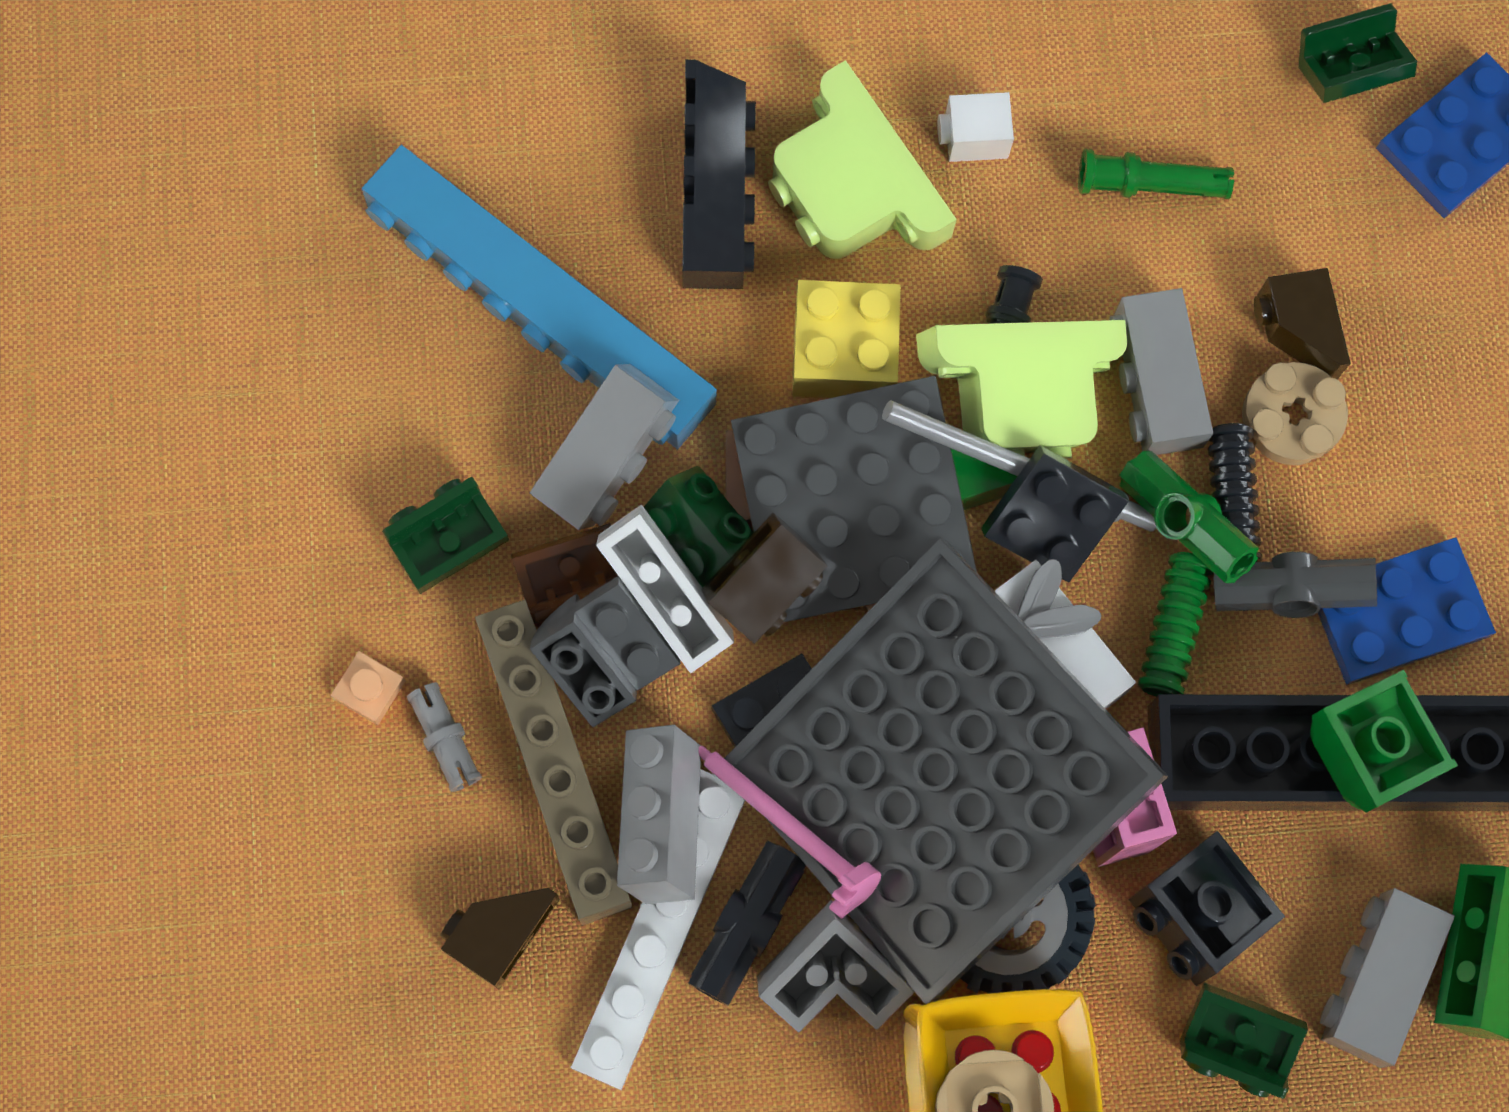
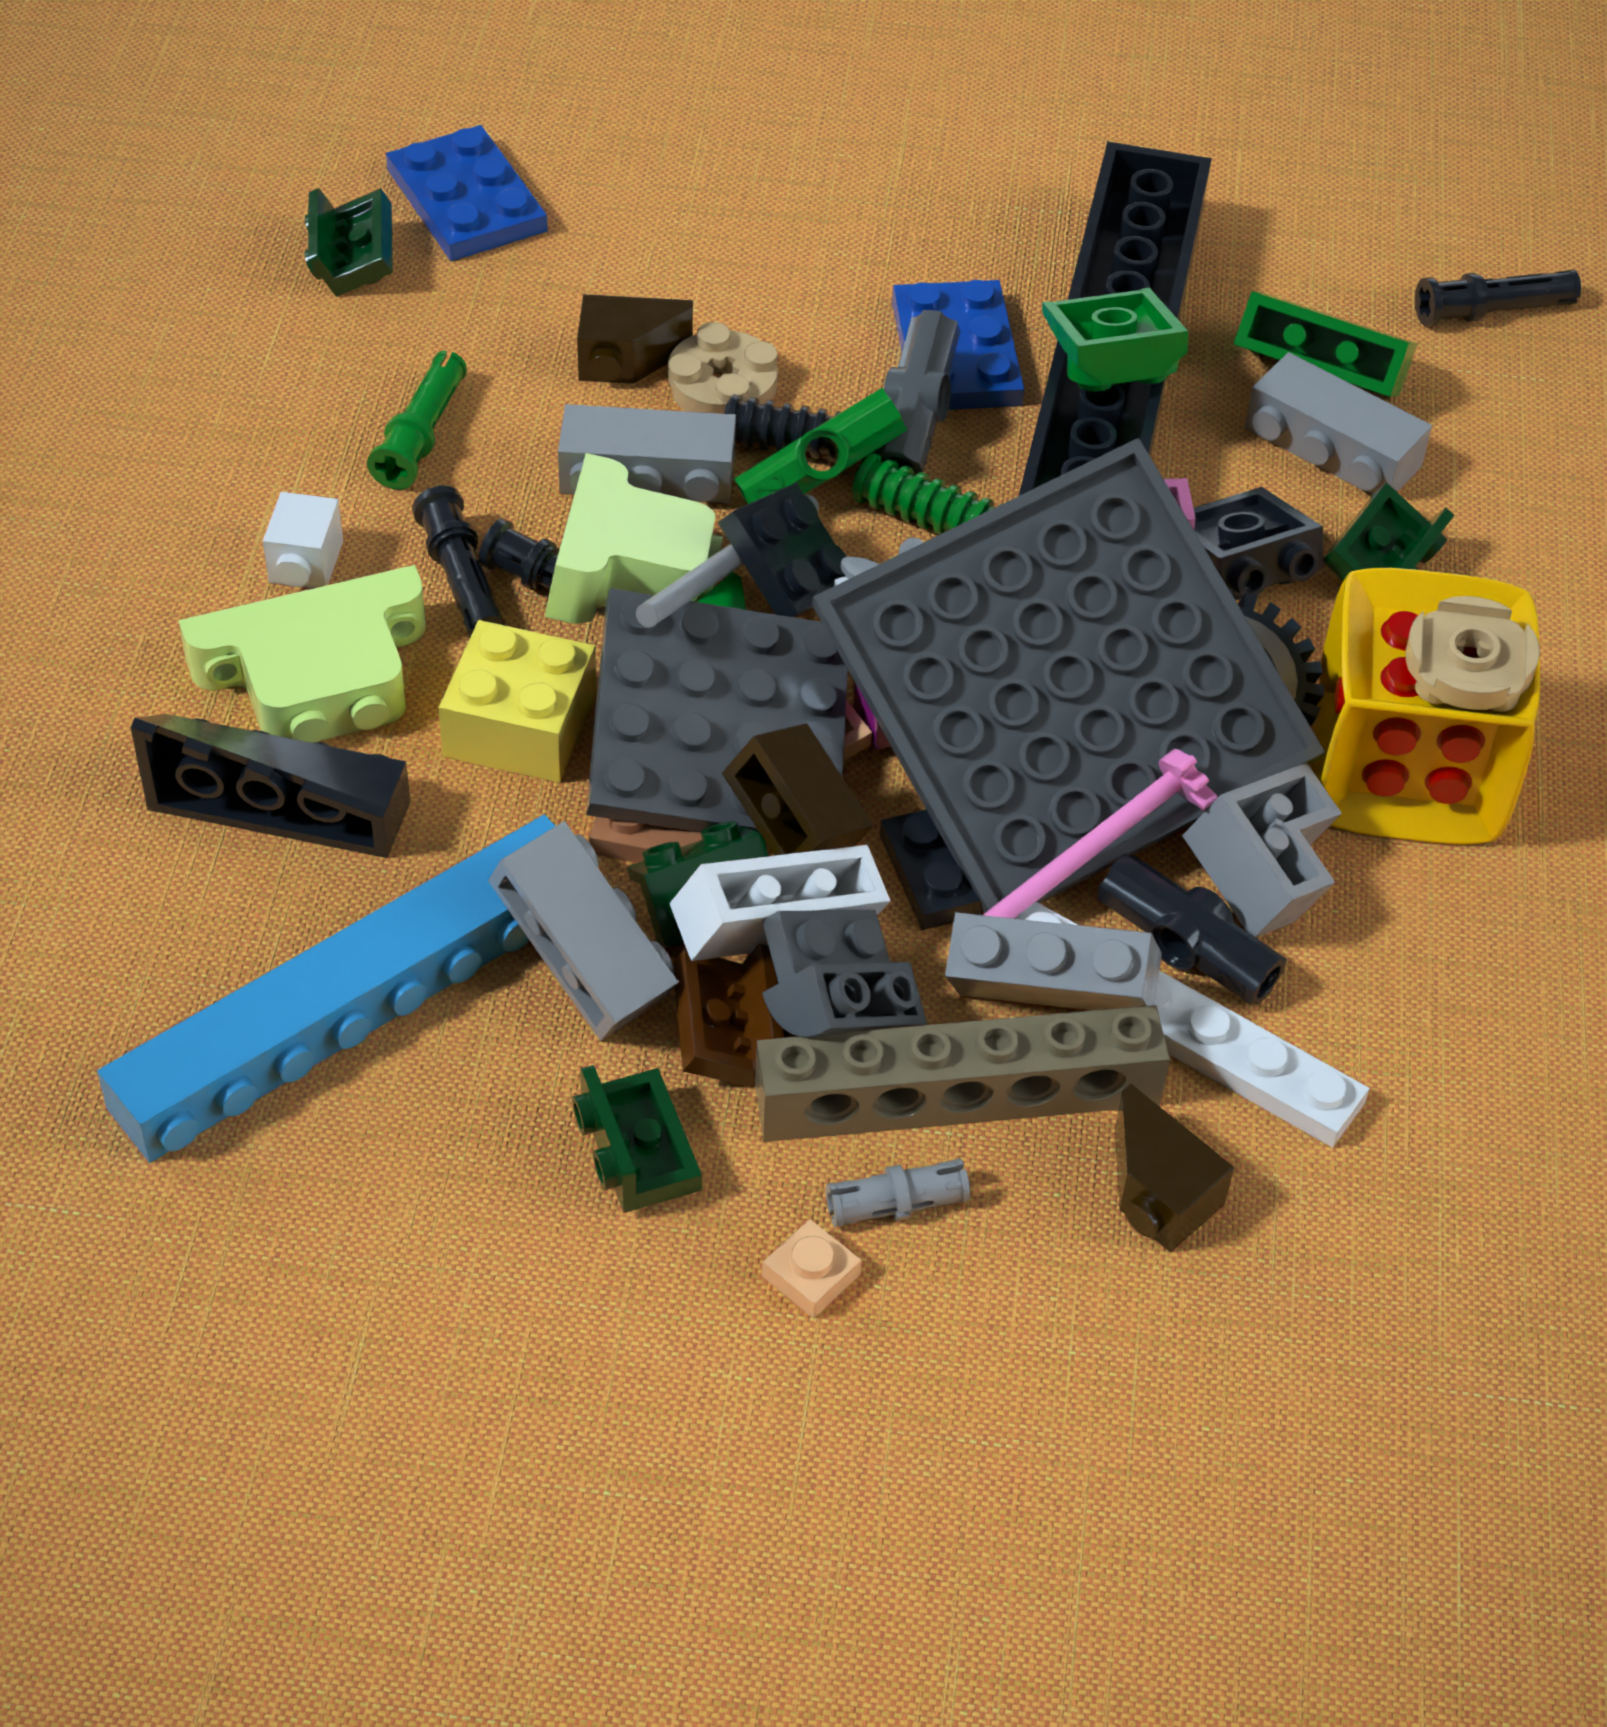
camera: 75 degrees left, 25 degrees down
(1012, 244) = (454, 546): none -> black pin

